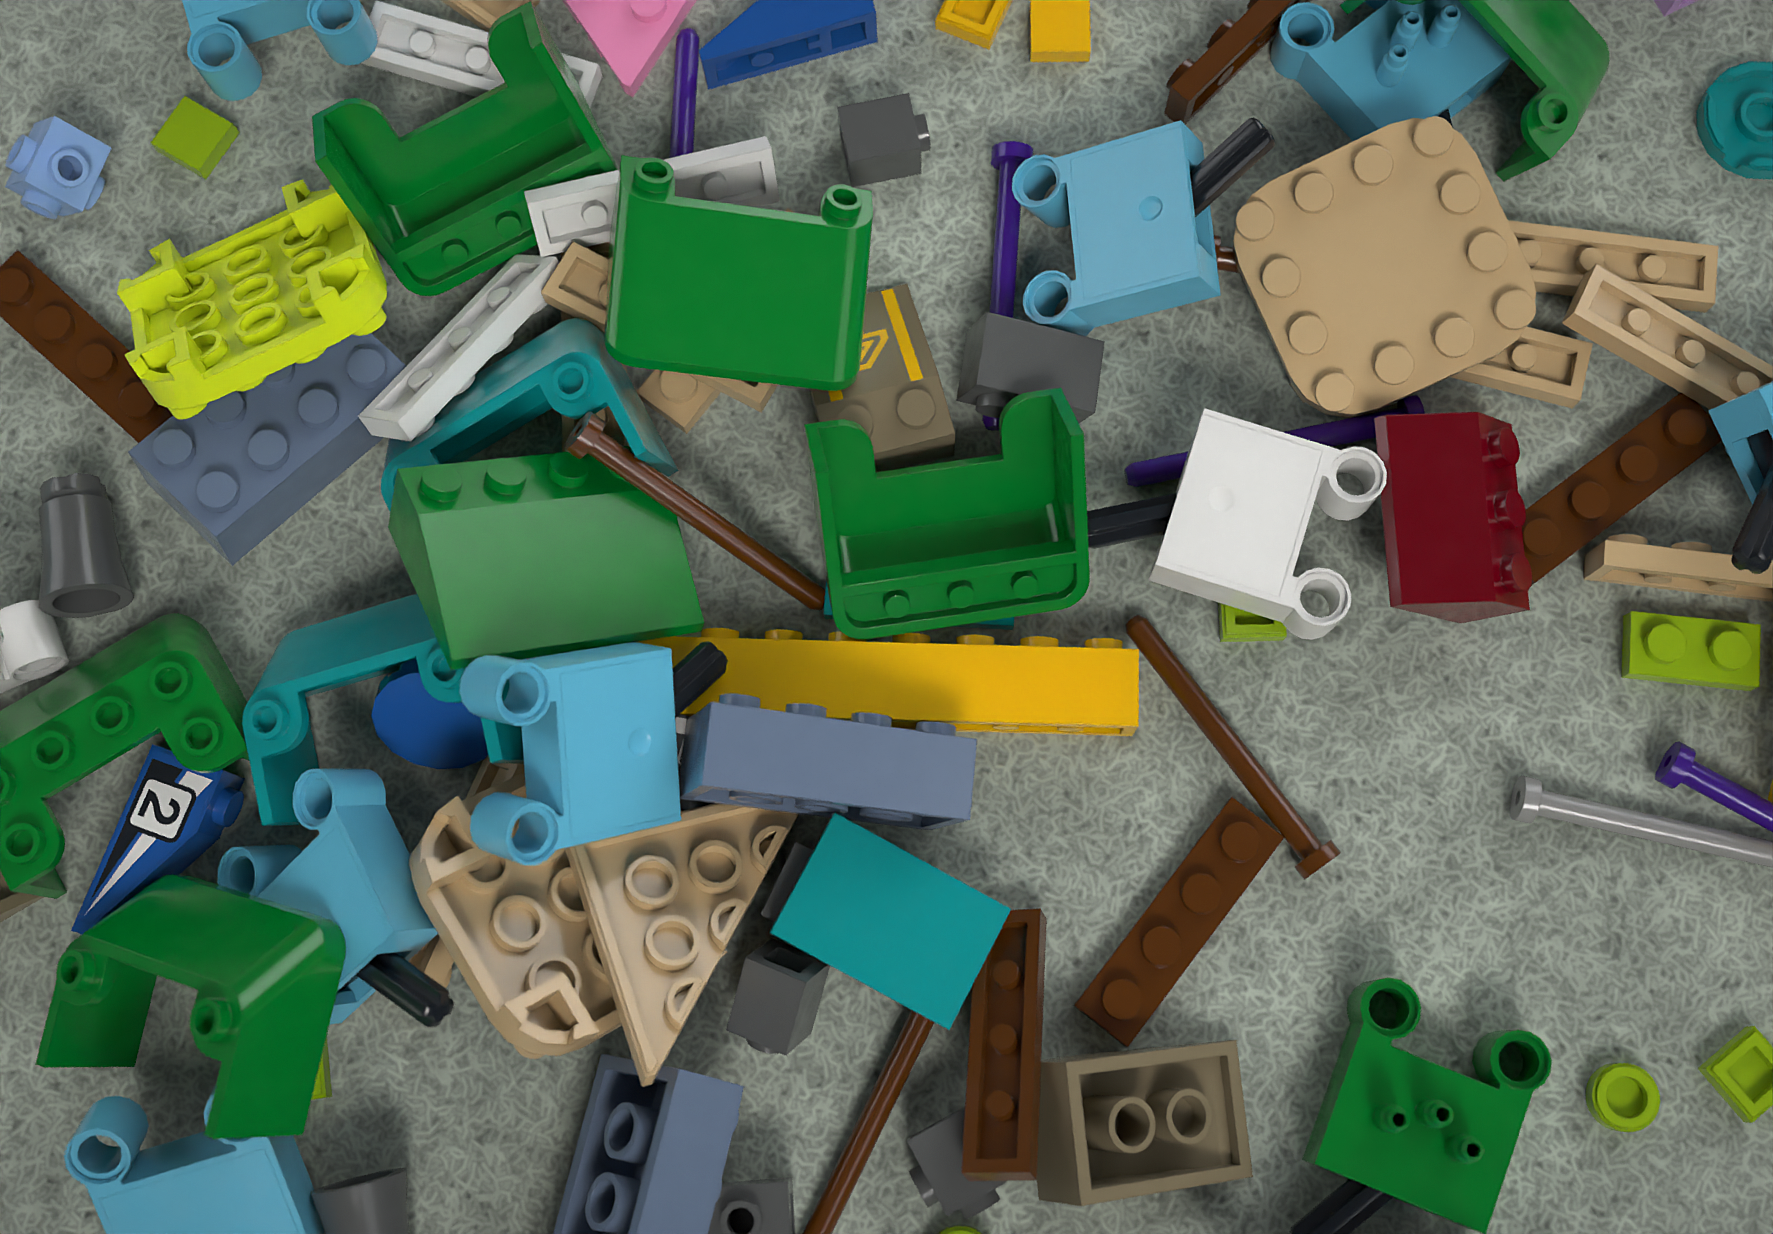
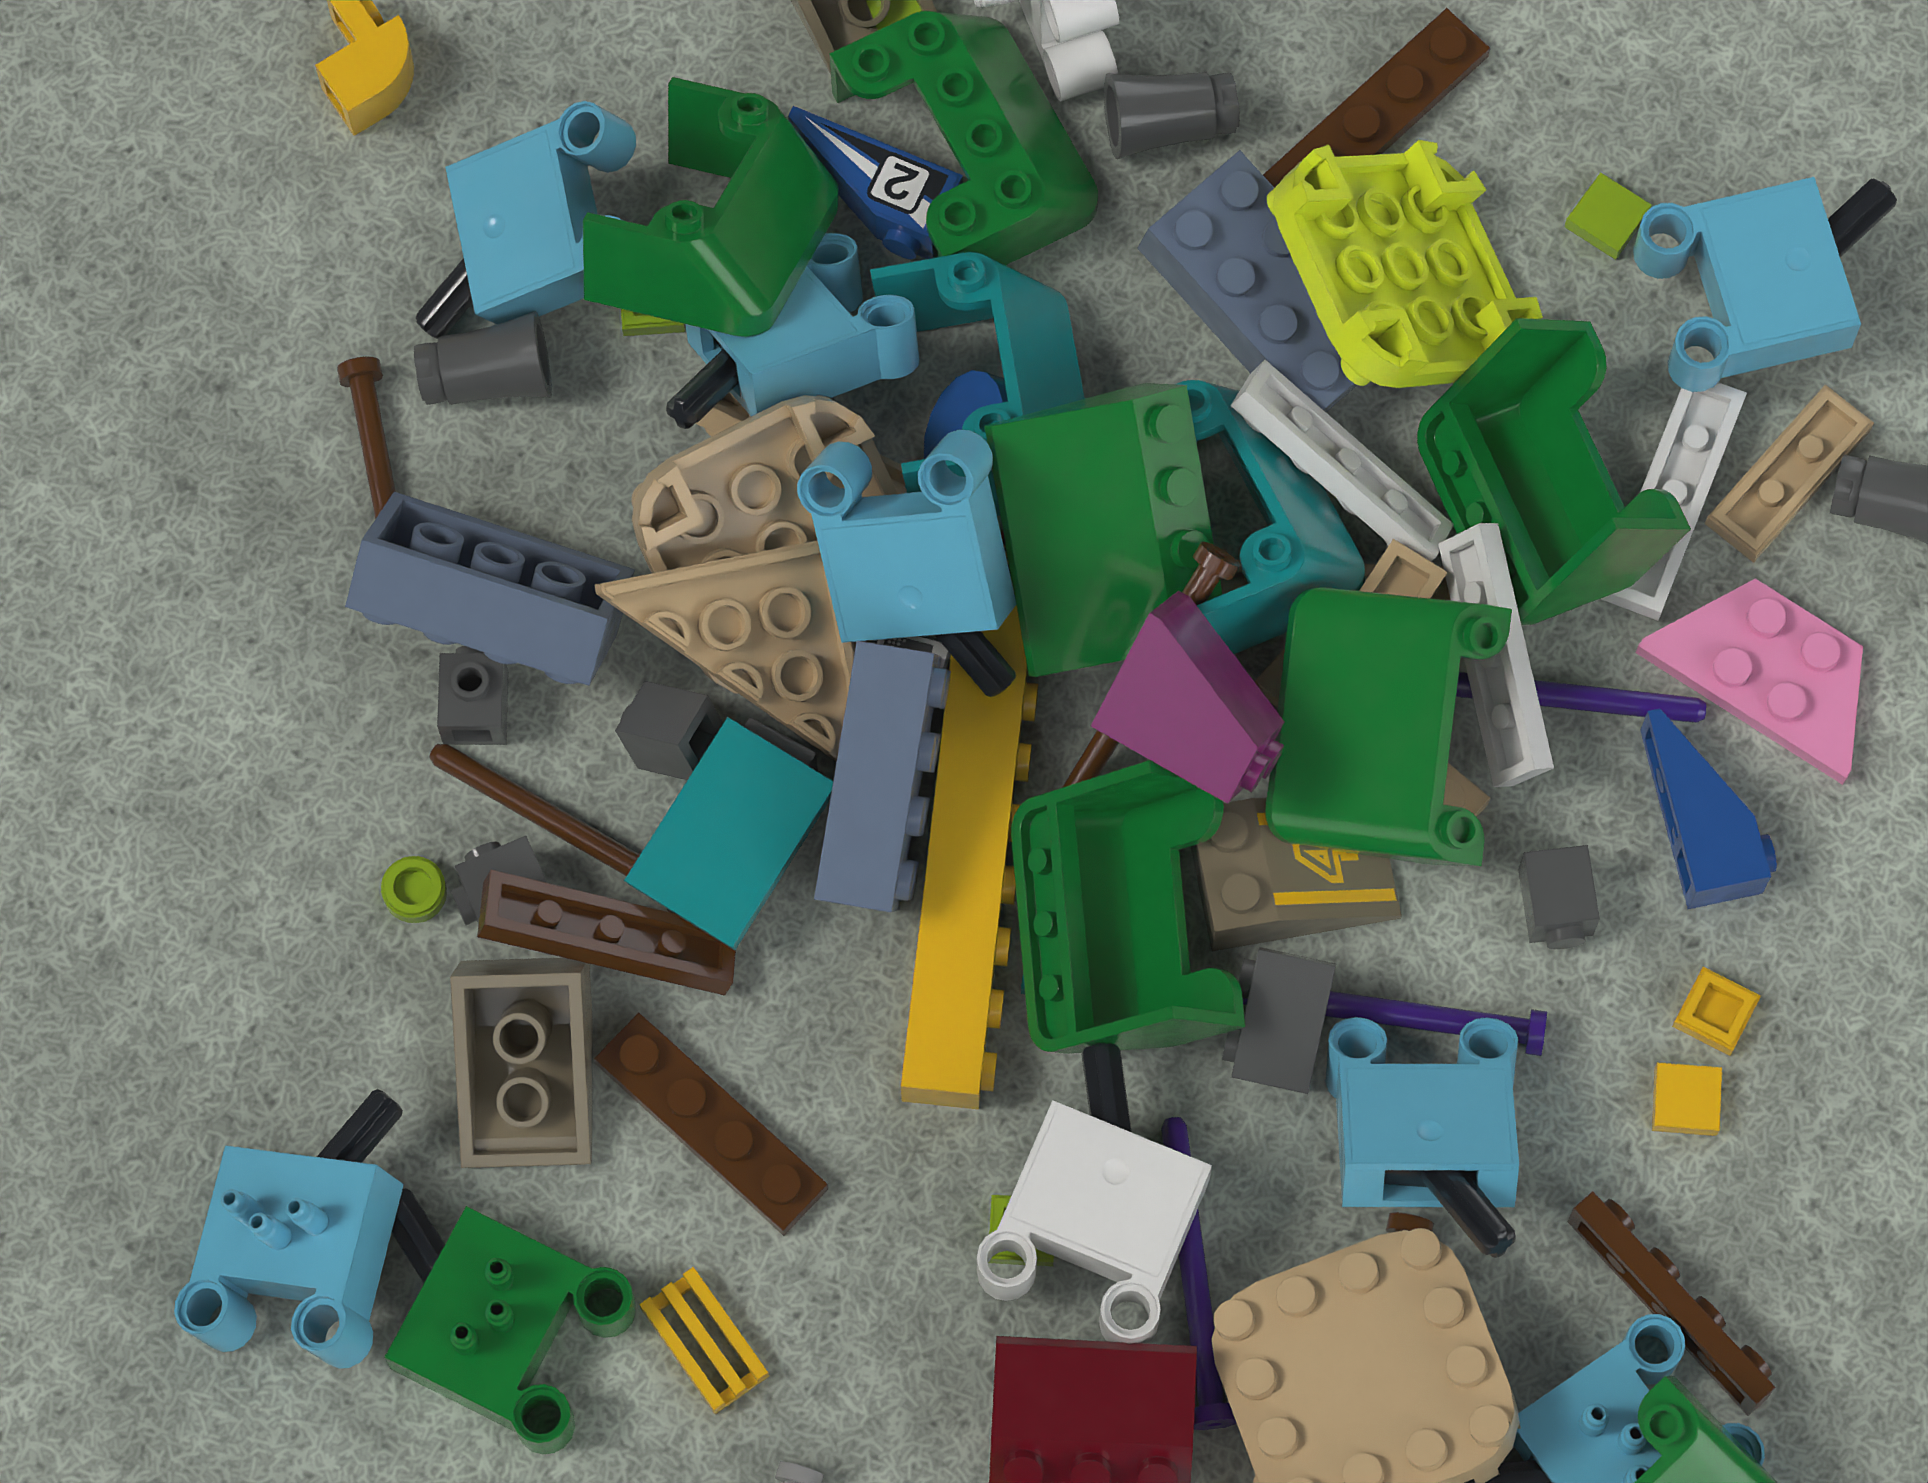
camera: 90 degrees right, 5 degrees down
(57, 169) = (1568, 83): light blue brick -> none
(748, 446) = (1191, 704): none -> magenta slope
(1231, 748) = (875, 1193): reddish brown bar -> none
(1440, 871) = (672, 1295): none -> yellow tile

